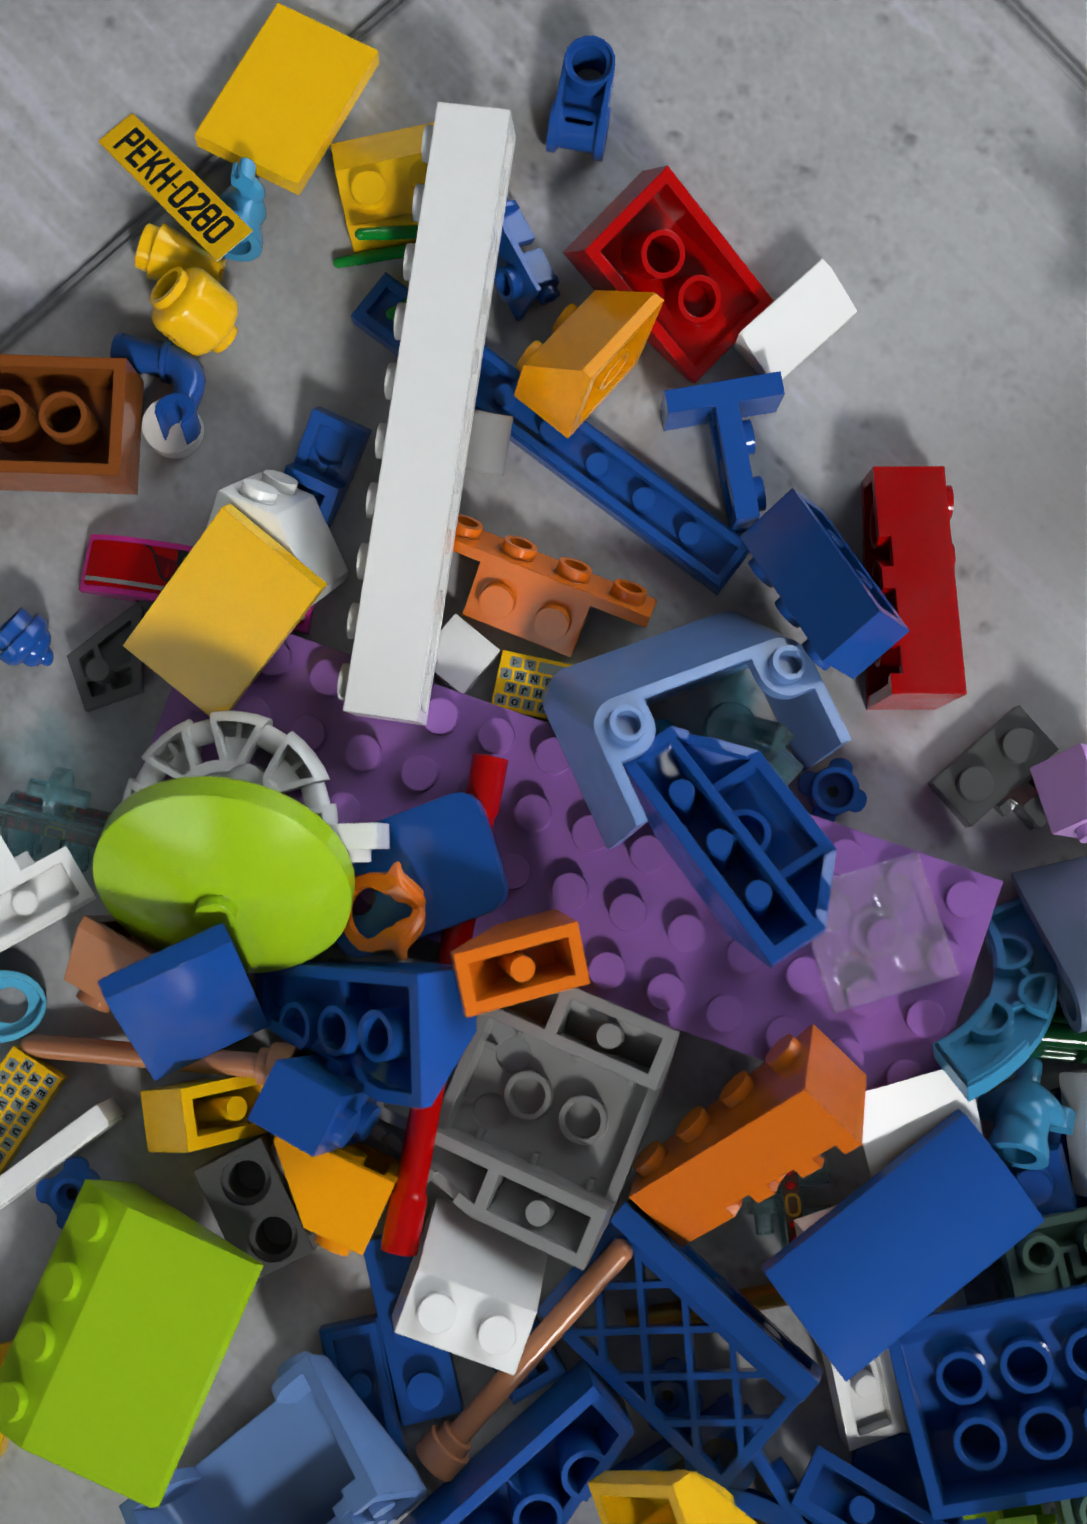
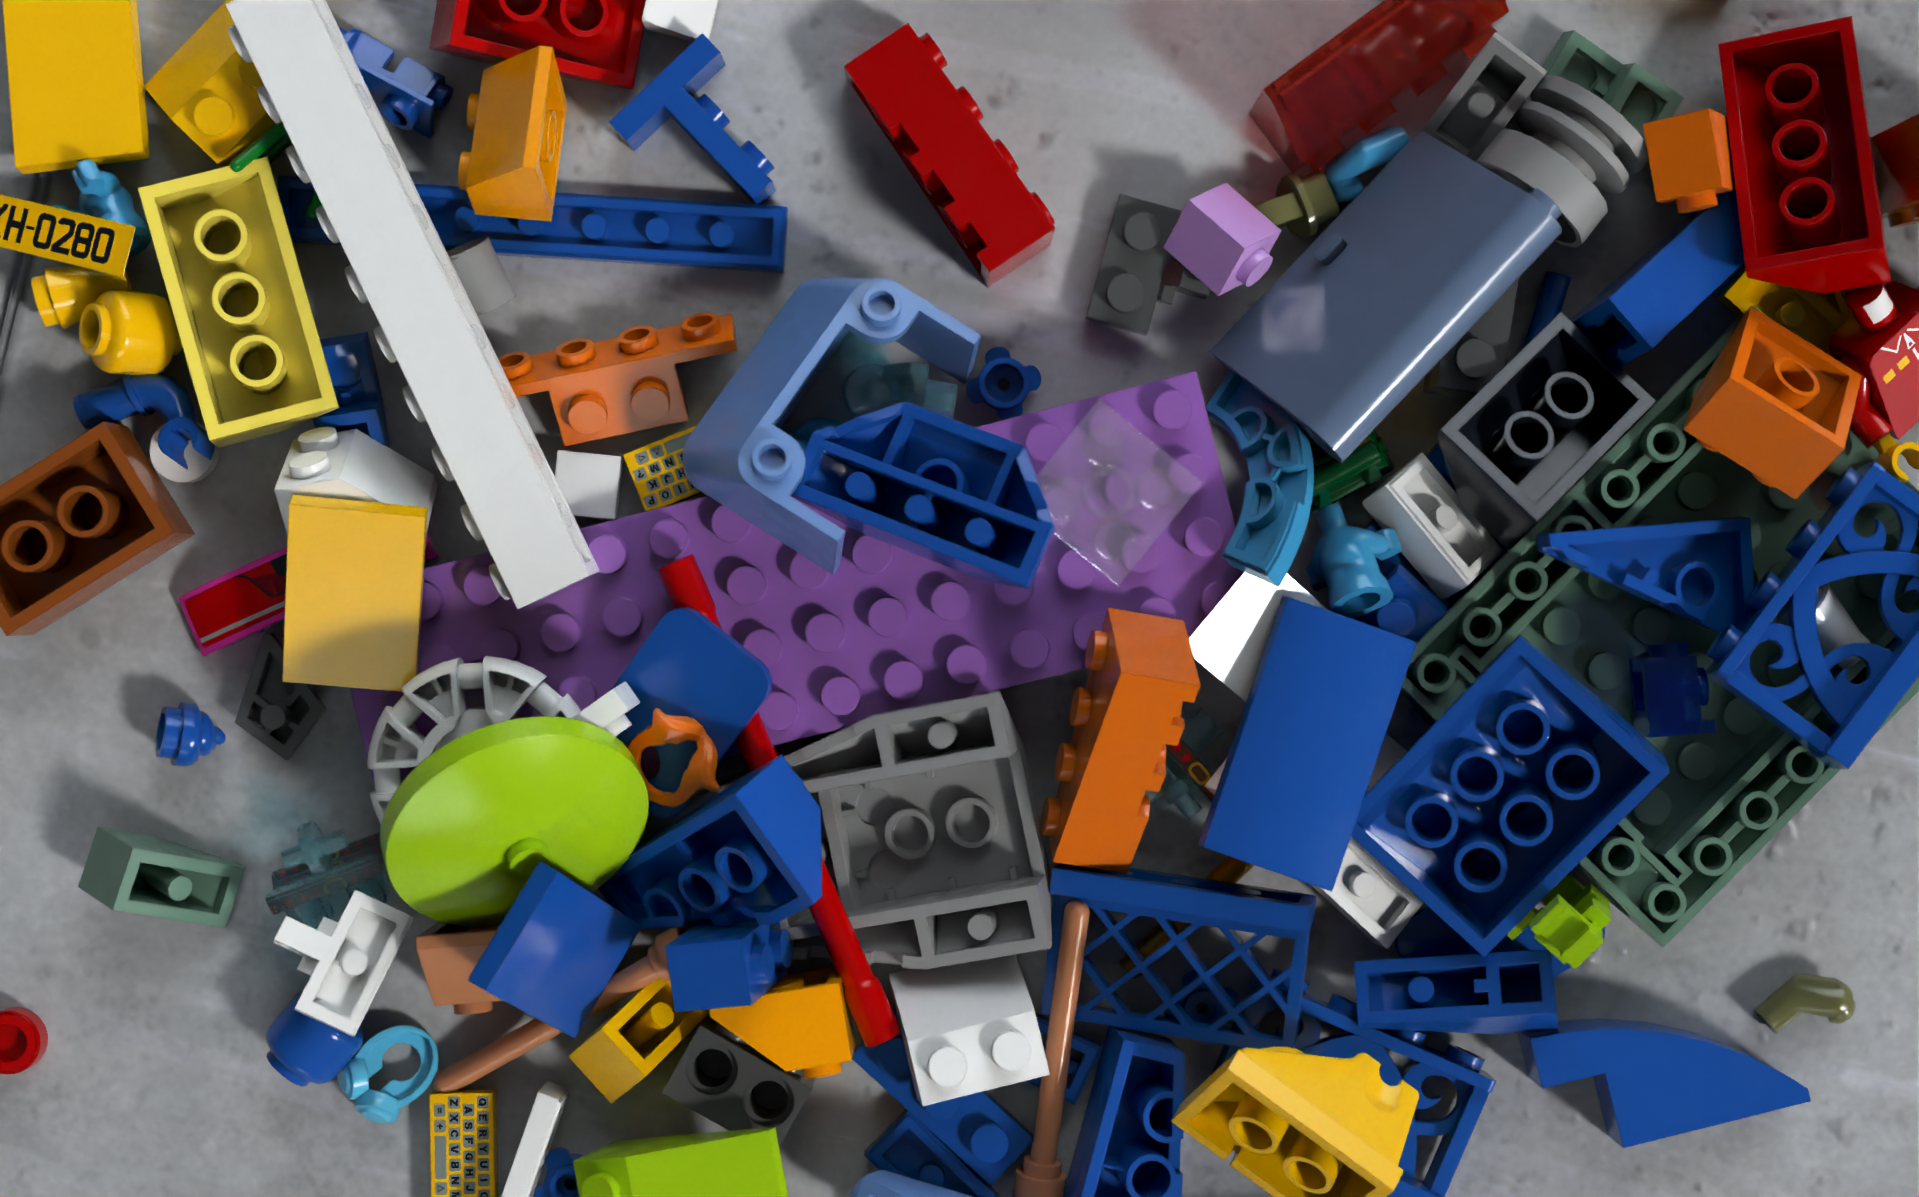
camera: 30 degrees left, 5 degrees up
(290, 340) = (239, 302): none -> light yellow slope
(520, 962) = (817, 725): orange slope -> none
(822, 586) = (867, 209): blue brick -> none

